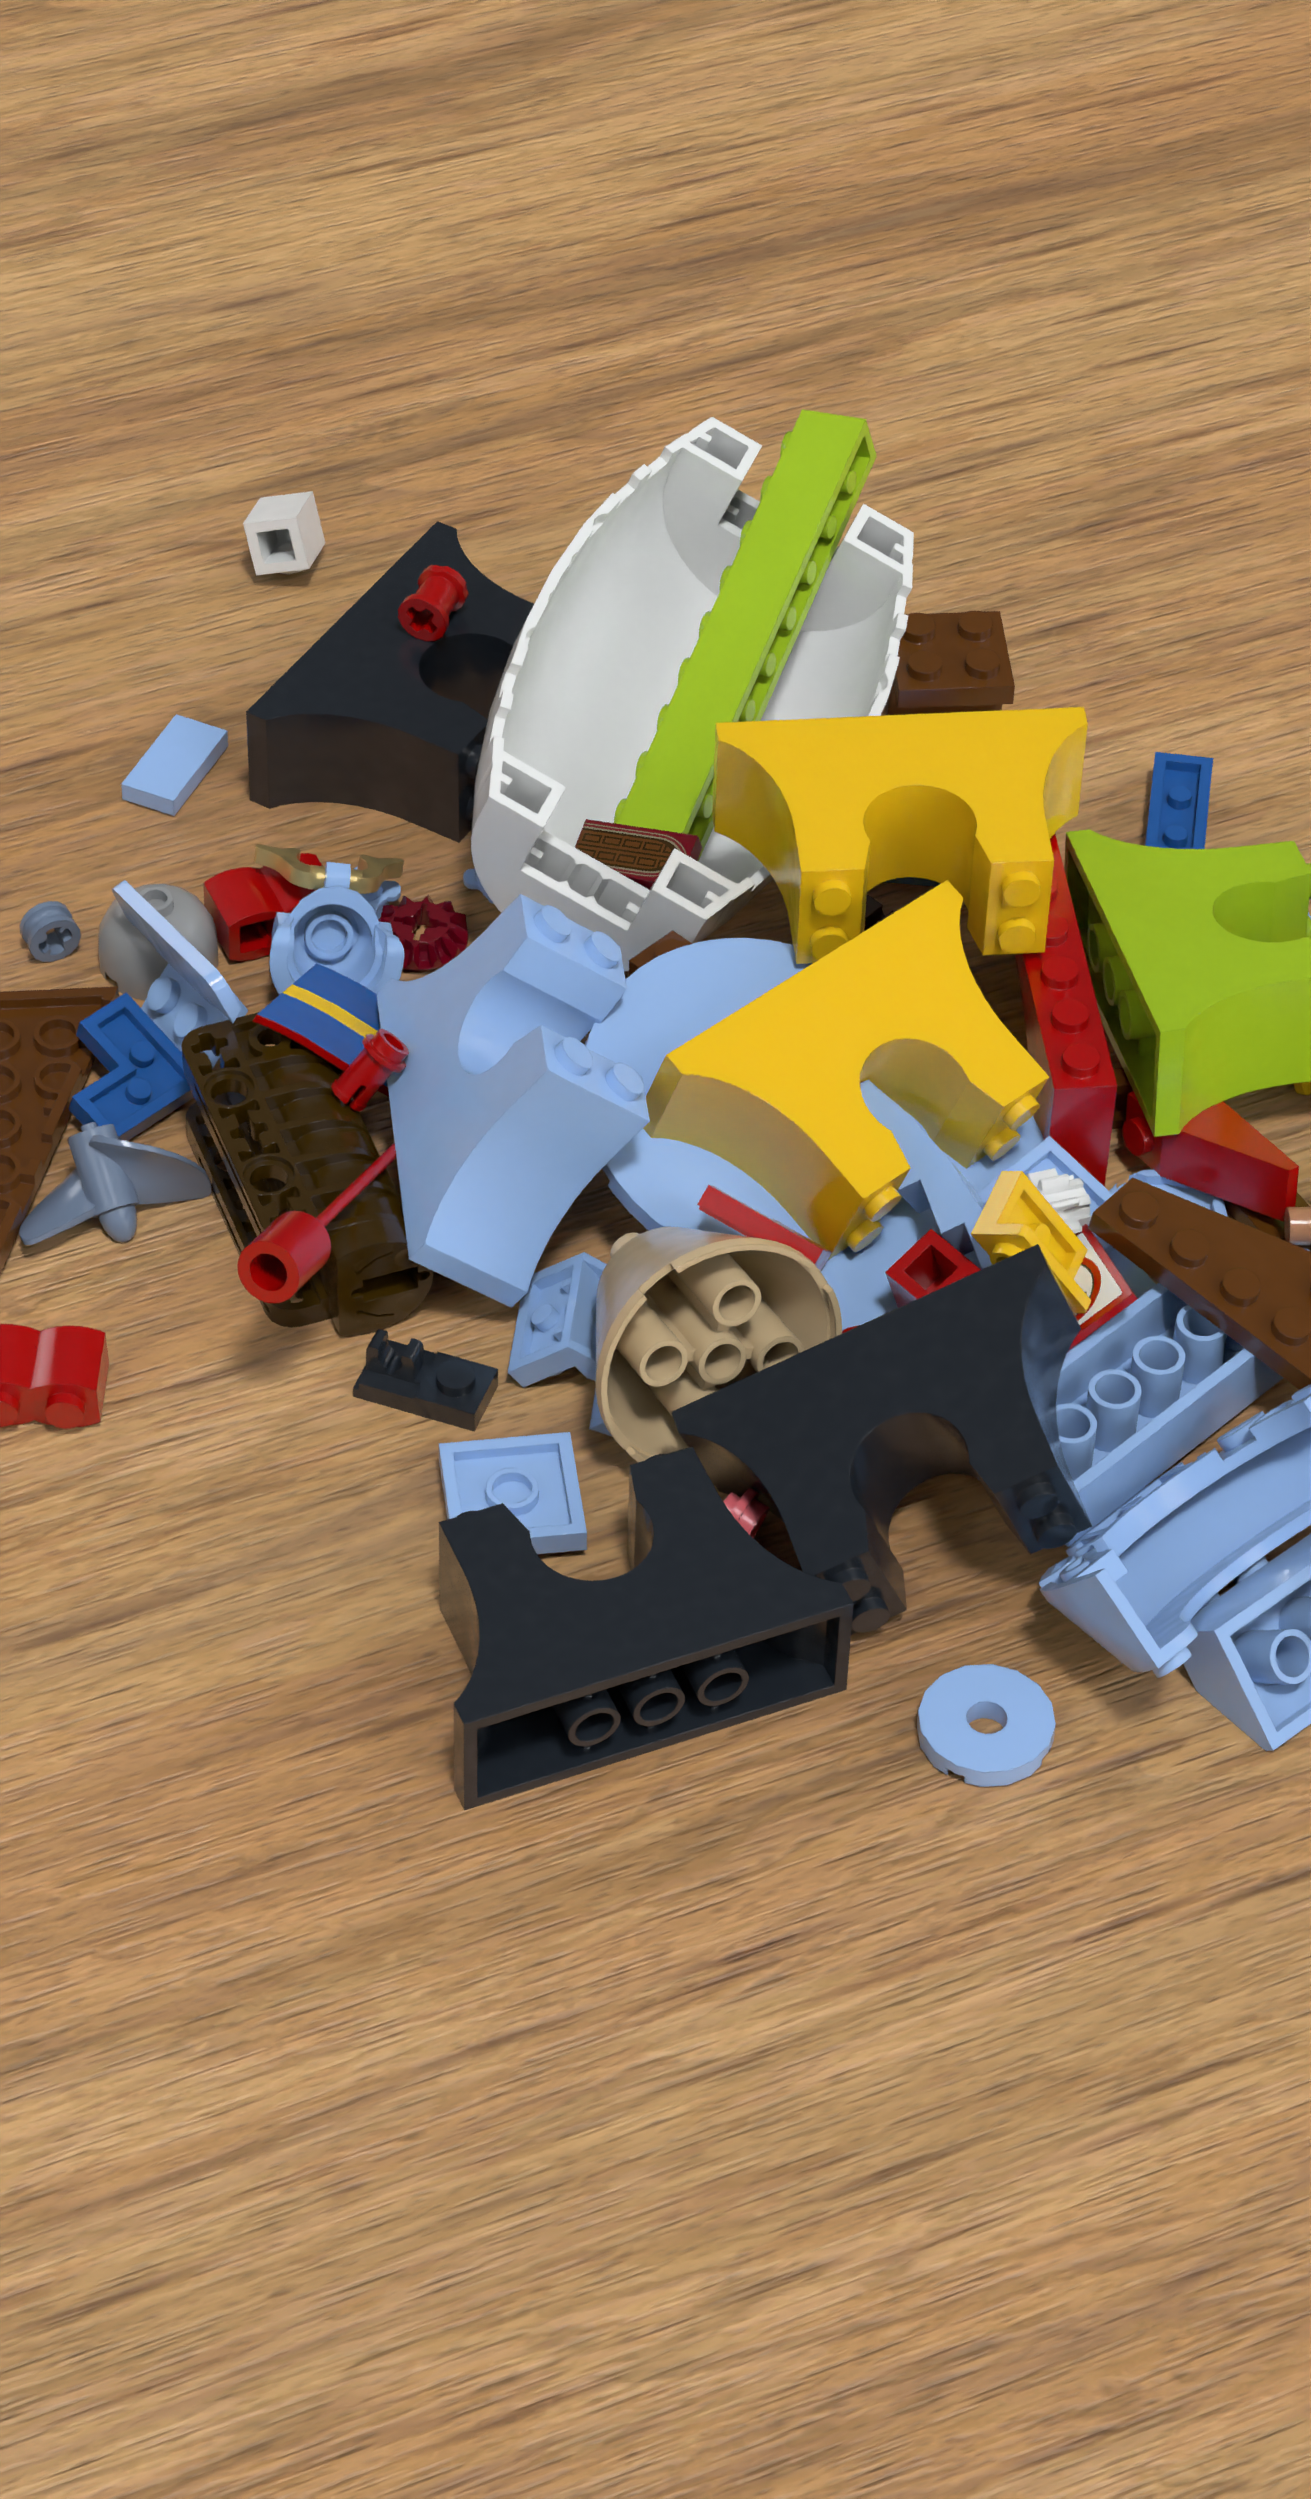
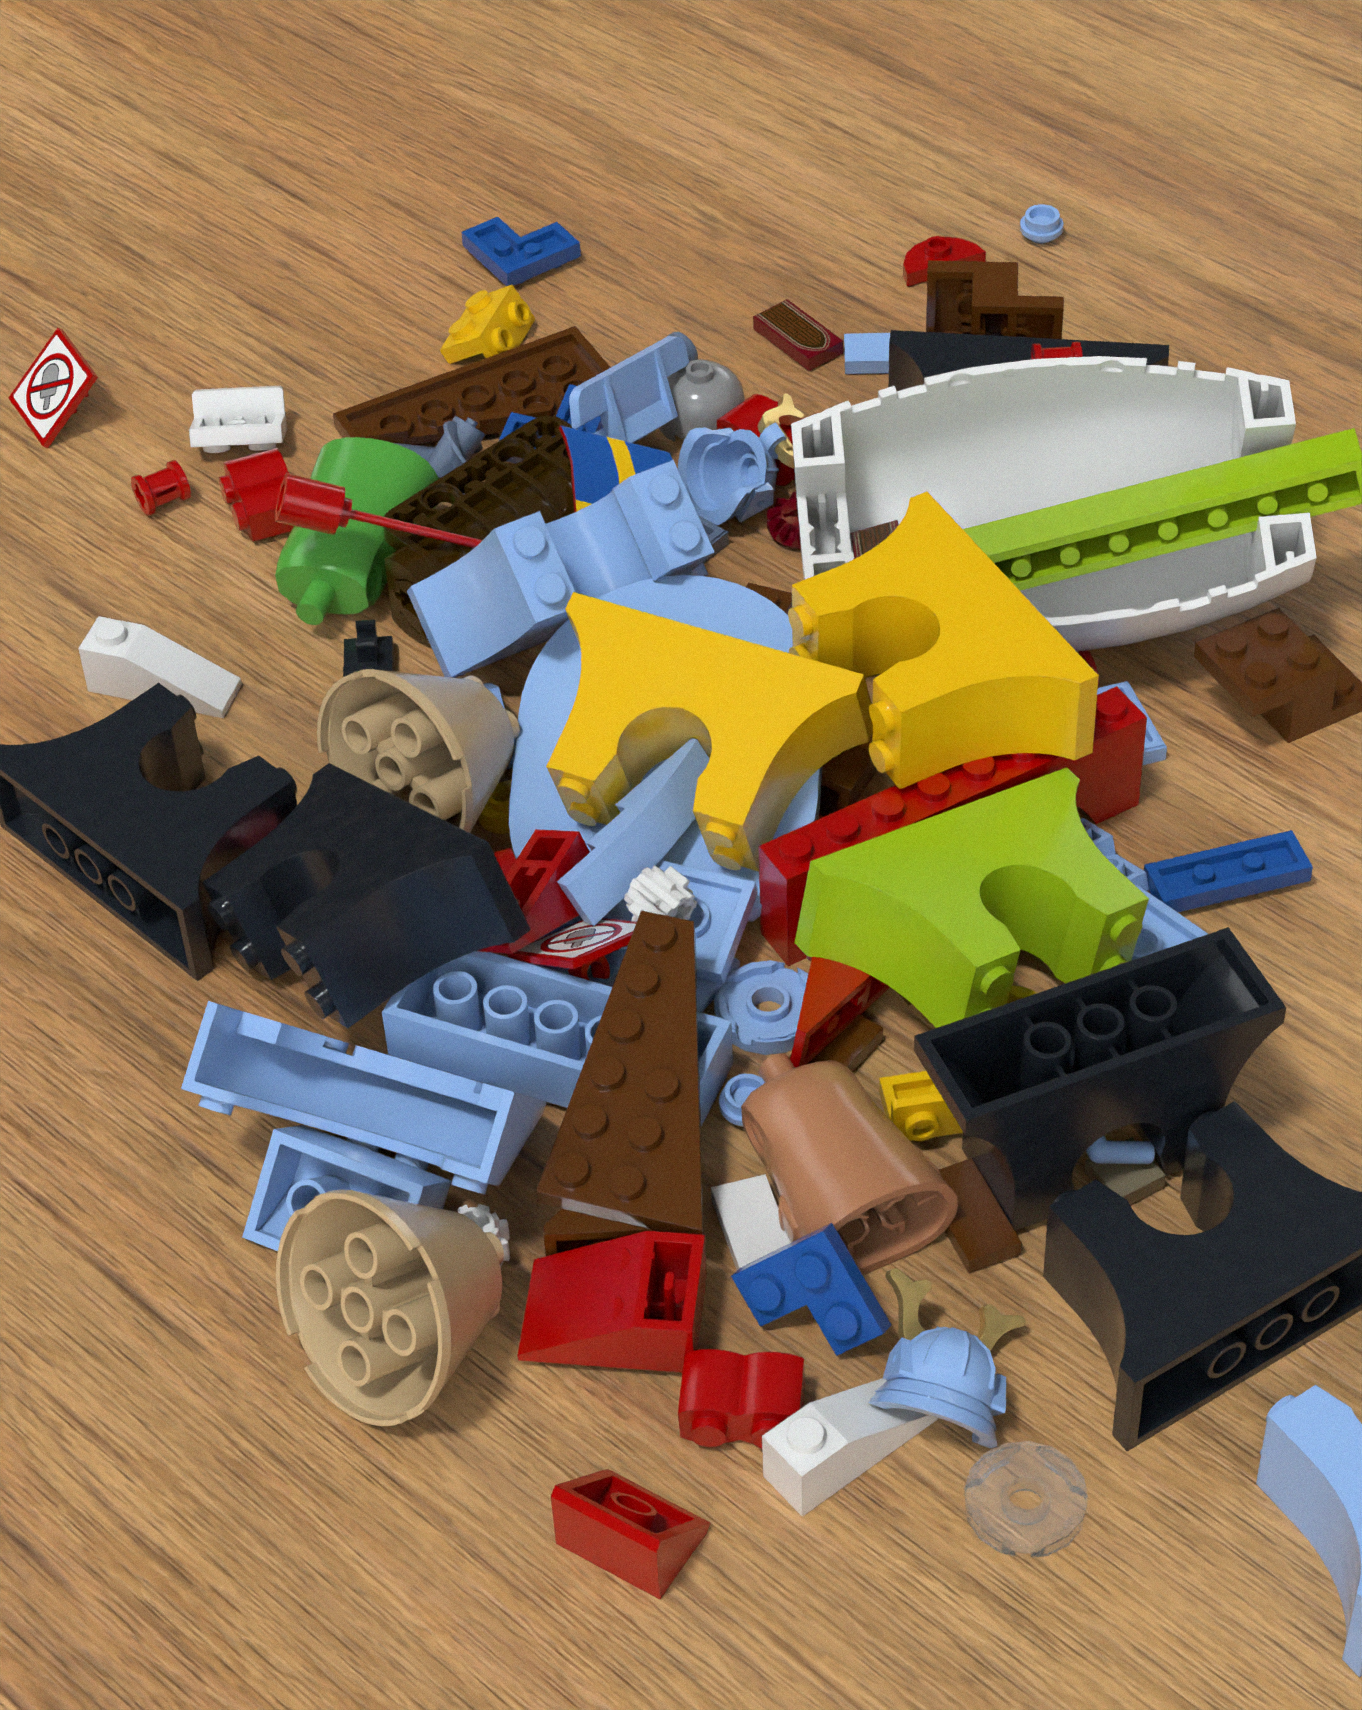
camera: 70 degrees right, 0 degrees up
(33, 664) = (938, 249): none -> red plate
(44, 562) = (1041, 223): none -> light blue plate
(81, 824) = (798, 335): none -> tile
(169, 1293) = (348, 569): none -> bright green torso
(225, 645) = (985, 301): none -> reddish brown bracket
(284, 533) = (1149, 307): white brick -> none
(298, 1575) = (131, 658): none -> white slope
(371, 1068) = (570, 500): red pin -> none
(529, 1476) = (278, 732): light blue plate -> none
(757, 1225) = (506, 745): red tile -> none
(992, 1694) = (156, 1061): light blue tile -> none
(1021, 1218) = (577, 885): yellow bracket -> none

